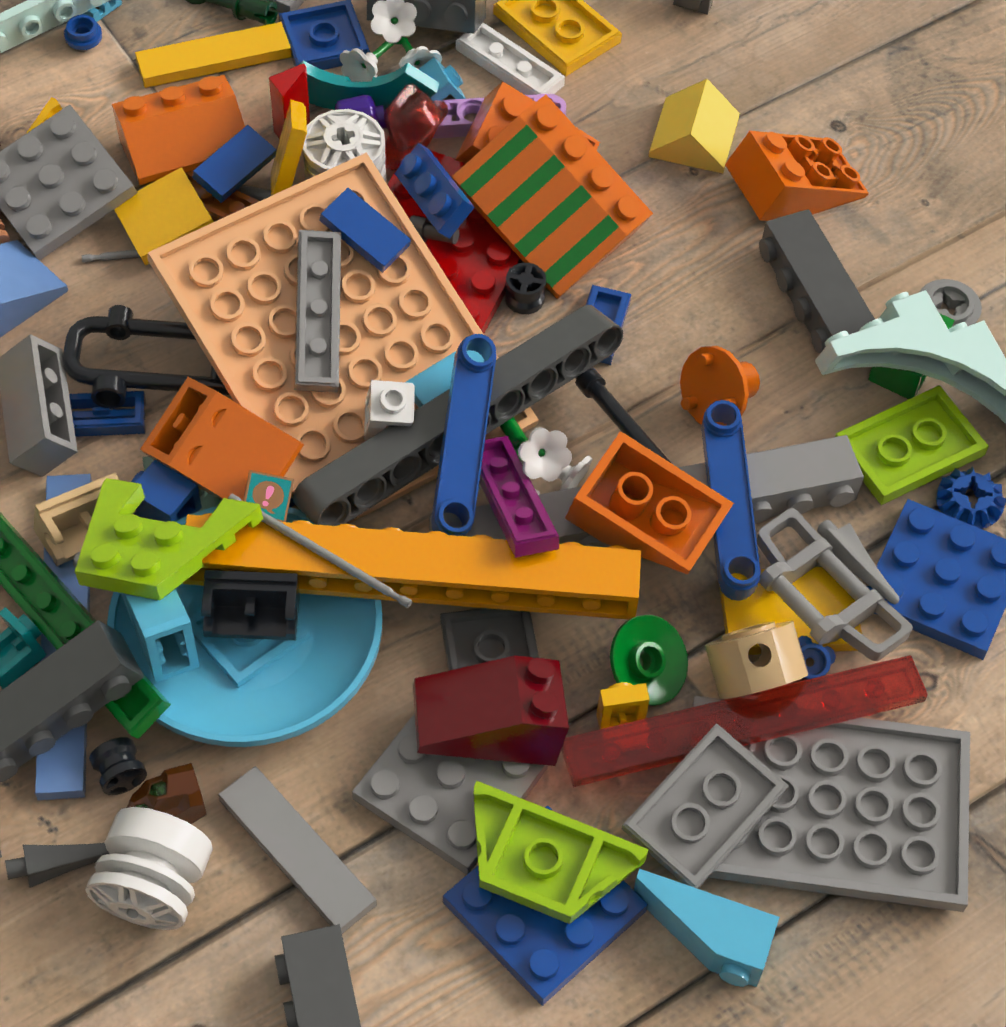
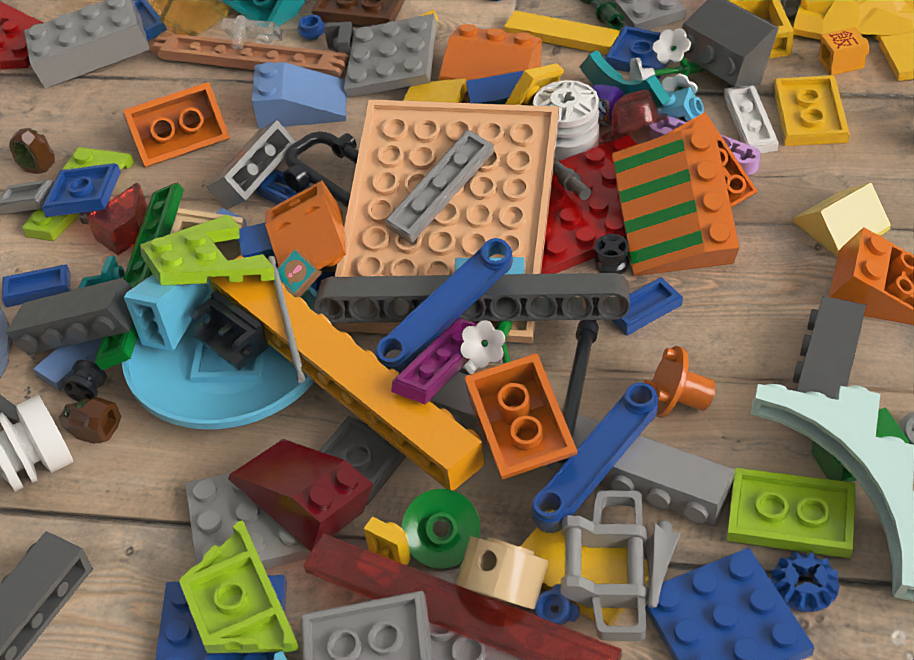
camera: 50 degrees right, 10 degrees down
(284, 87) = (571, 59): red slope -> none
(297, 850) = (123, 498): light grey tile -> none
(365, 229) = (513, 152): blue tile -> none
(388, 405) = (421, 260): white bracket -> none
(434, 190) = (594, 156): blue plate -> none

